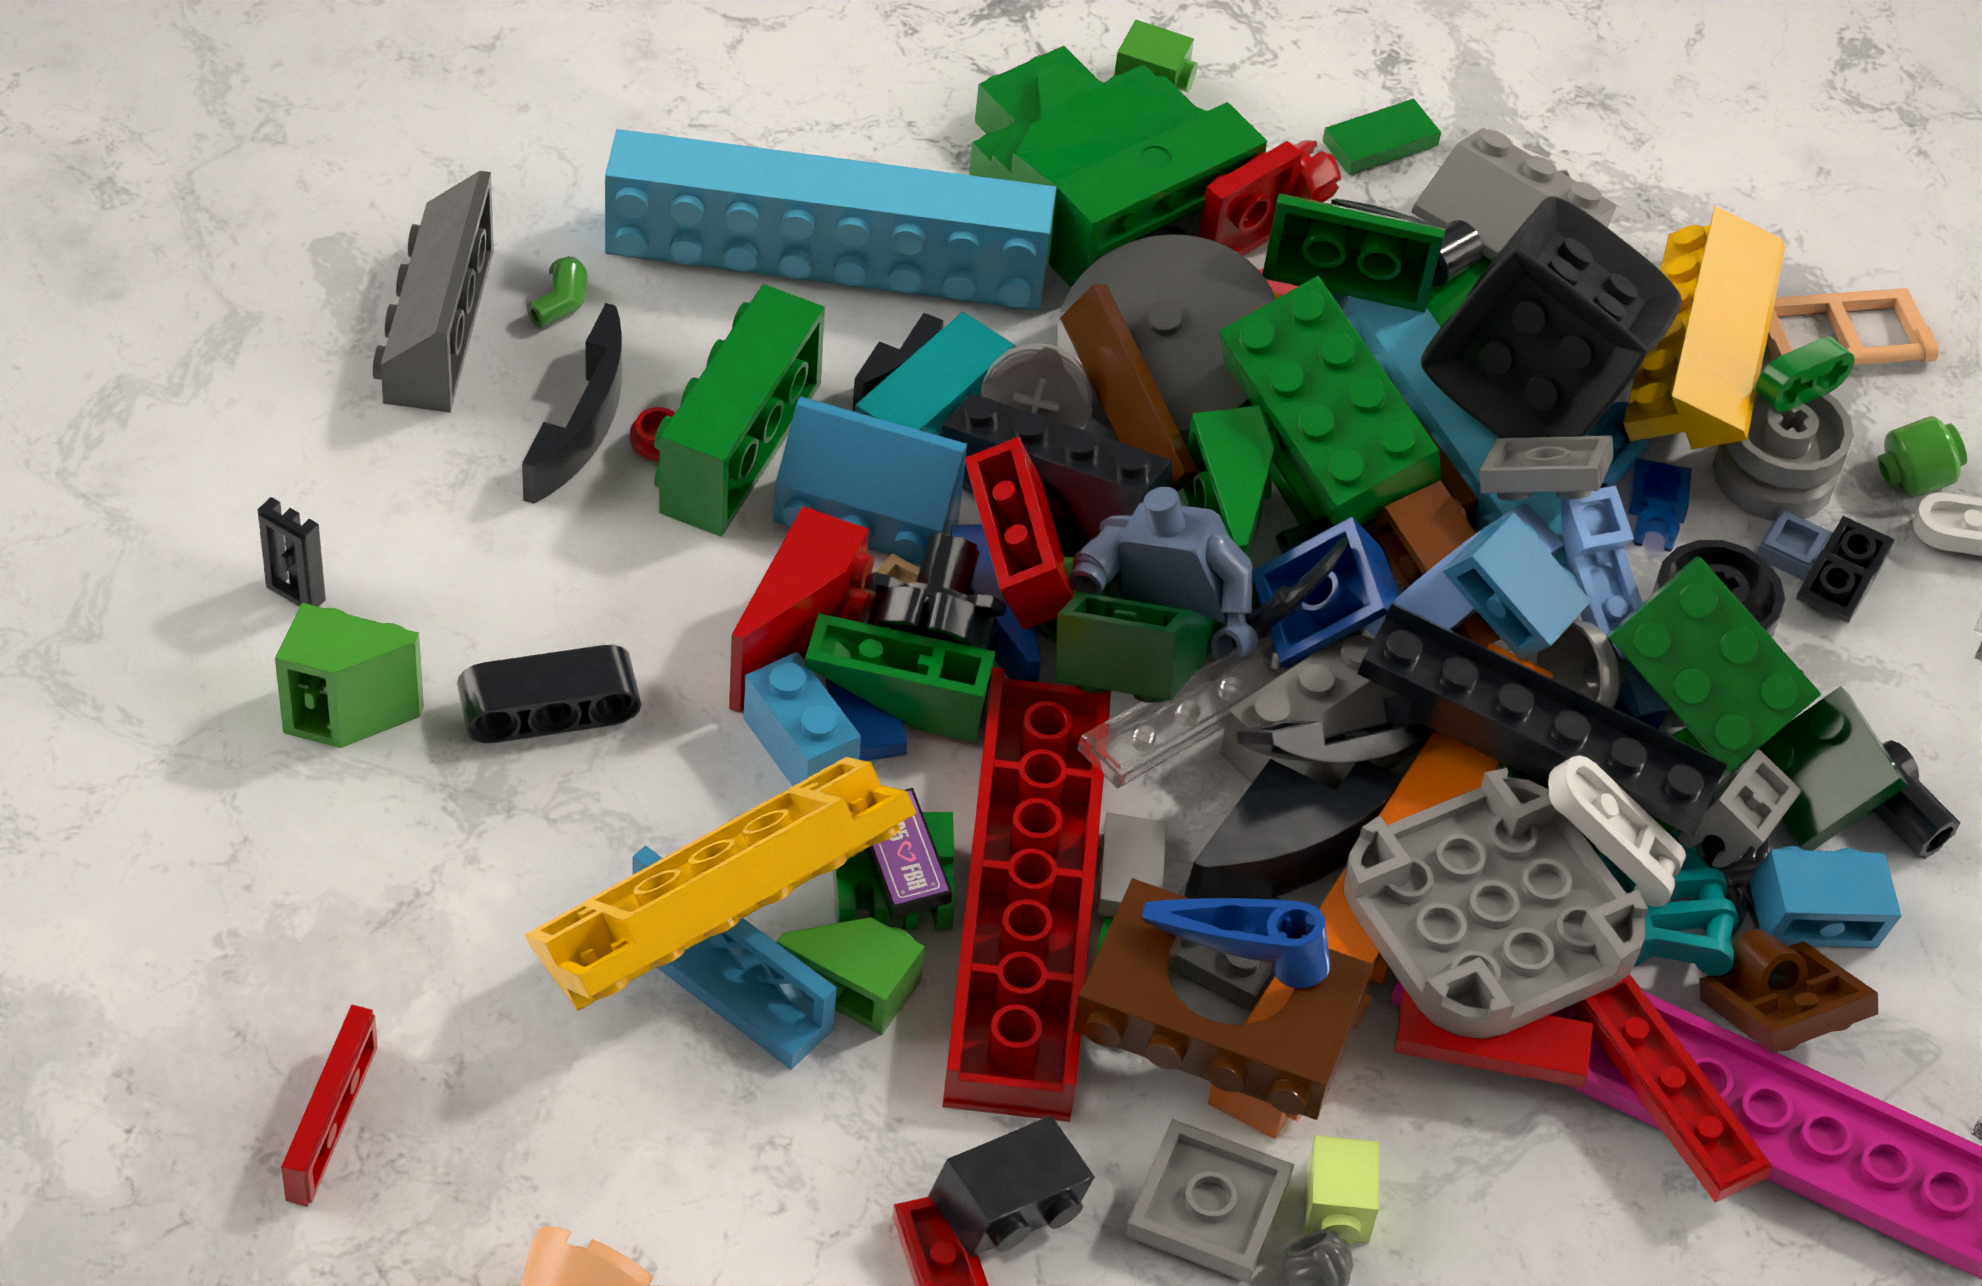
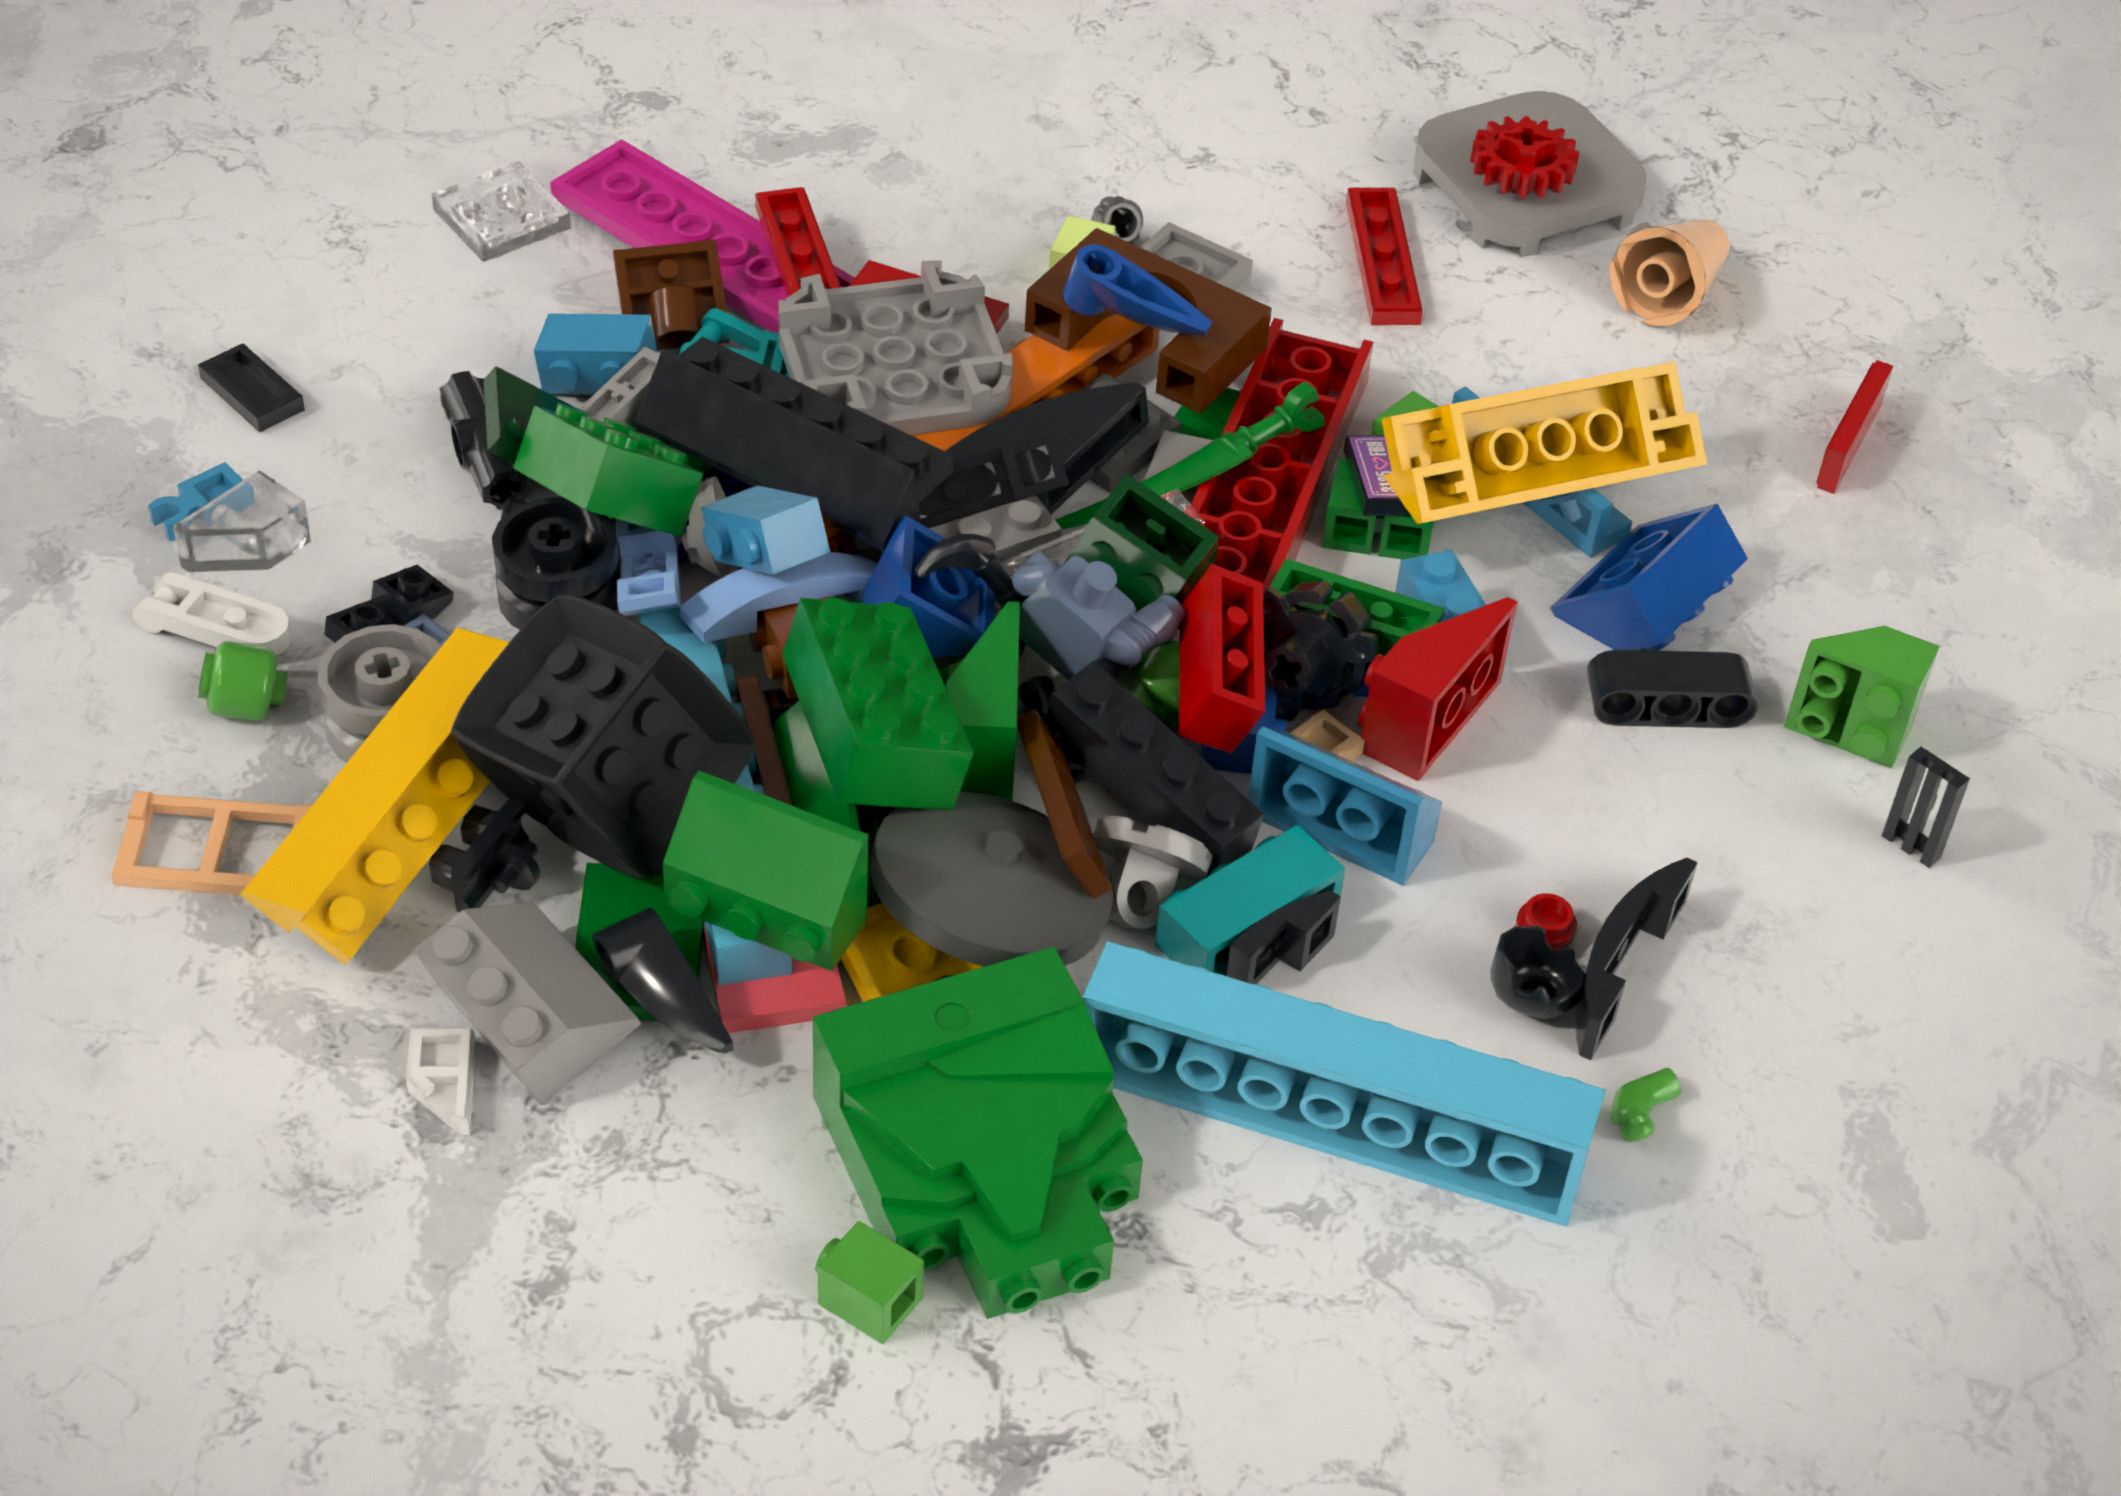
camera: 165 degrees left, 5 degrees down
(438, 298) = (1785, 1081): dark grey slope -> none
(578, 818) = (1654, 580): none -> blue slope
(662, 362) = (1534, 975): none -> black hair
(739, 409) = (1465, 883): green brick -> none
(1012, 1187) = (1336, 284): black brick -> none
(1101, 836) = (1224, 451): none -> green sword
(1243, 203) = (778, 1045): red plate -> none
(1381, 136) = (616, 1160): green tile -> none
(1546, 464) = (689, 608): light grey plate -> none
(1617, 827) = (793, 354): white plate -> none
(1805, 374) = (351, 676): green beam -> none

